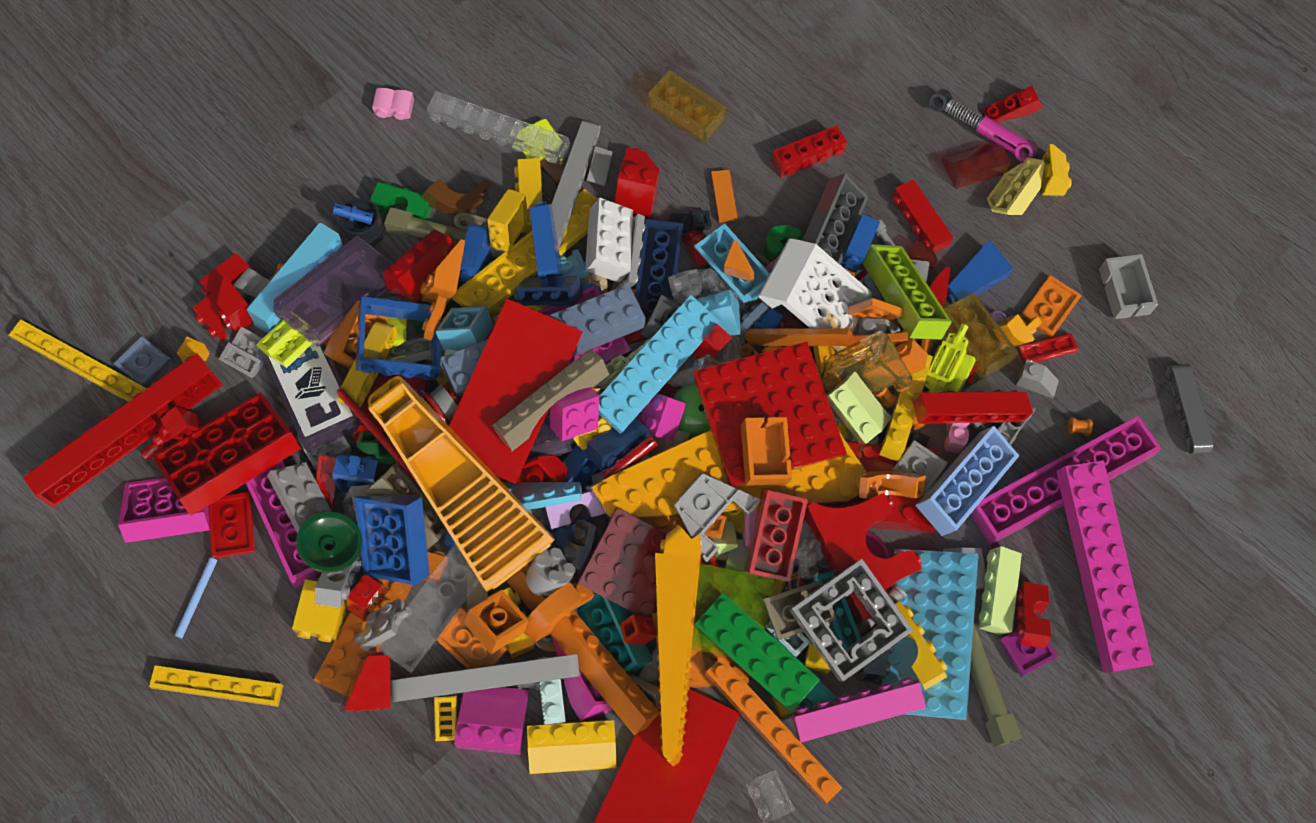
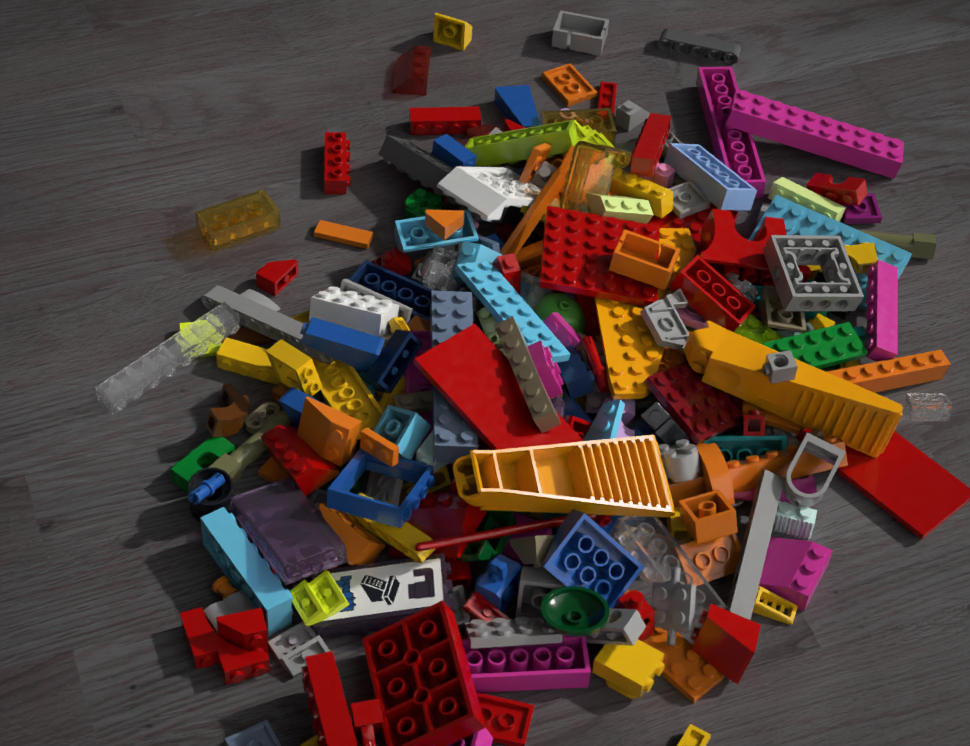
camera: 65 degrees left, 20 degrees down
(190, 348) = (276, 692): light orange brick -> none
(393, 103) = (78, 432): bright pink brick -> none
(571, 747) = (838, 519): yellow slope -> none
(608, 282) = (398, 323): none -> yellow plate
(618, 699) = (821, 450): none -> light grey window
(637, 189) = (307, 277): red slope -> none
(663, 630) = (780, 367): none -> light grey brick
(695, 220) = (355, 260): black slope -> none
(891, 483) = (697, 211): orange arch -> none
(985, 126) = (381, 52): piece -> none
(1014, 106) = (373, 29): red slope -> none
(1017, 188) = (451, 57): light yellow wedge -> none
(1019, 331) = (584, 100): light orange brick -> none
(1080, 426) = (683, 110): orange bush -> none

